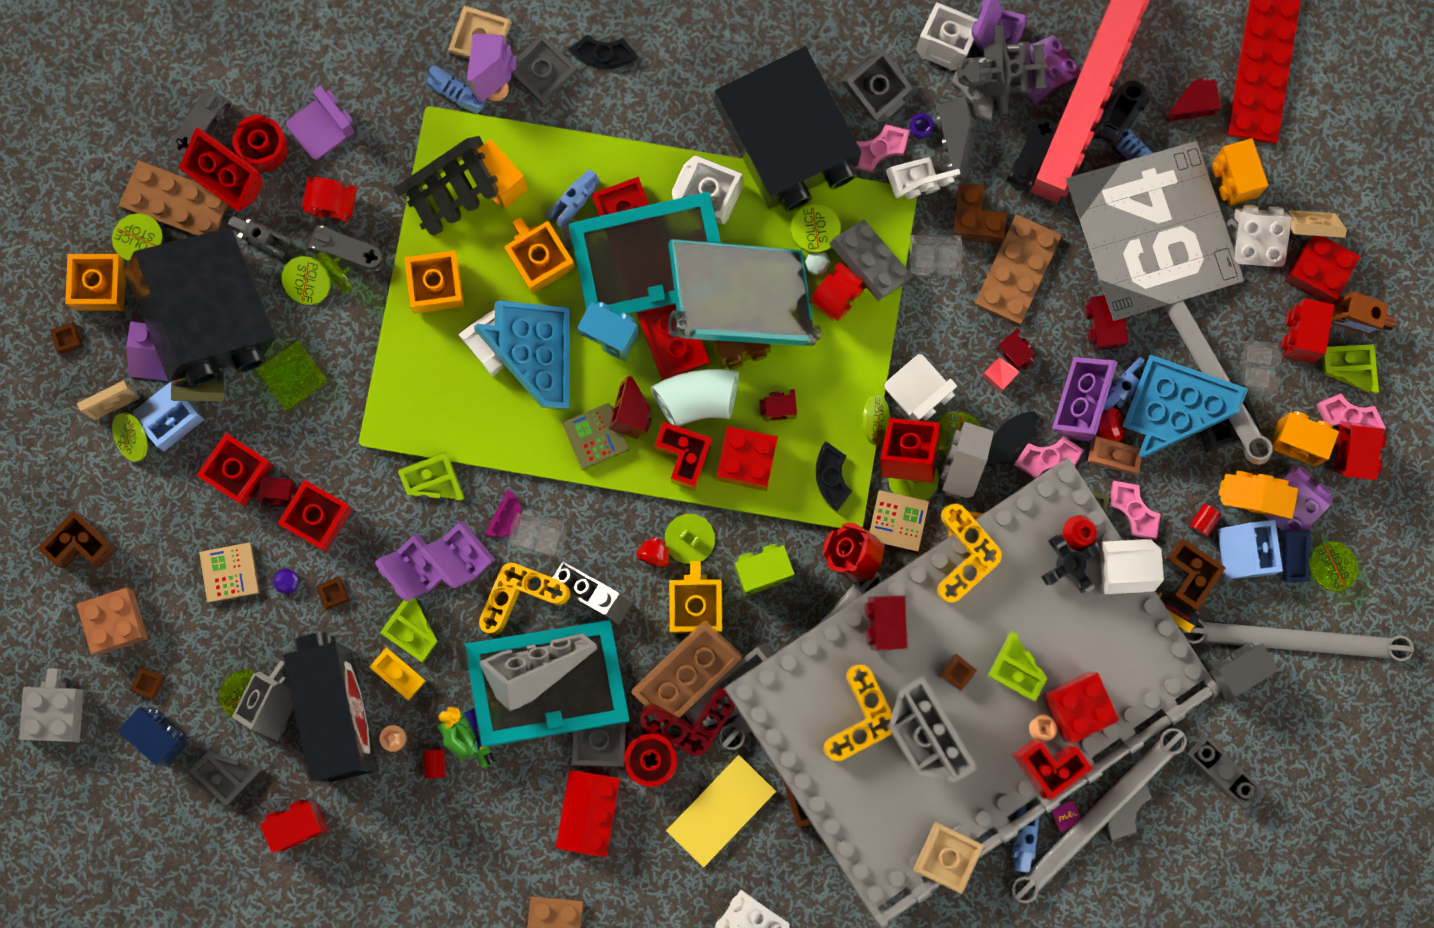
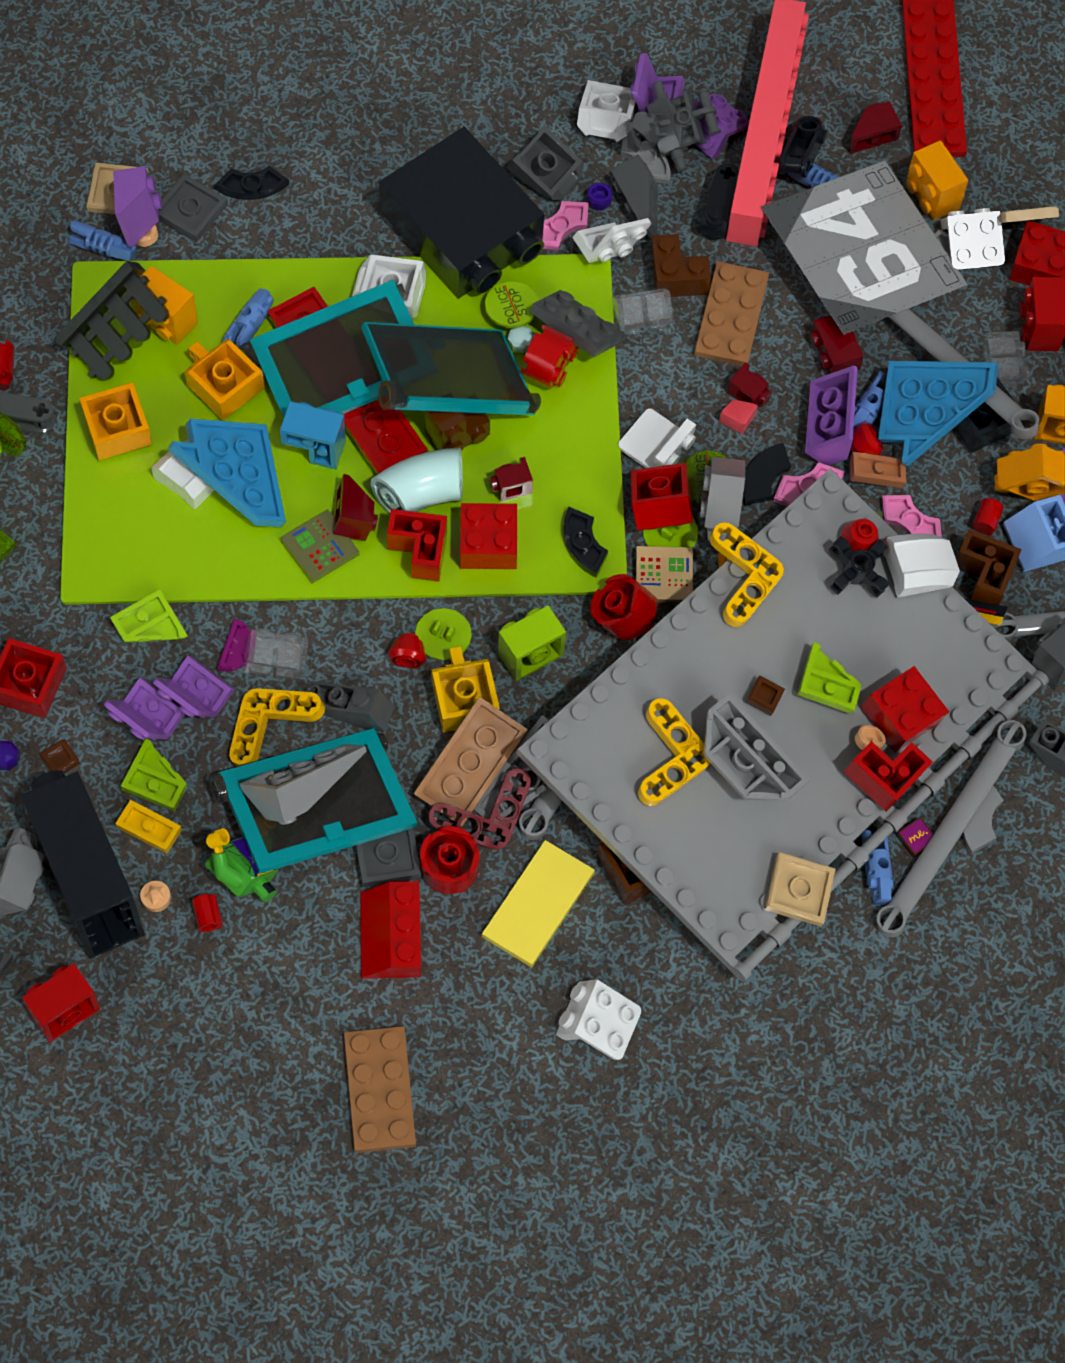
camera: 15 degrees left, 15 degrees down
(875, 419) = (617, 475): lime piece -> none
(886, 622) = (677, 651): dark red brick -> none

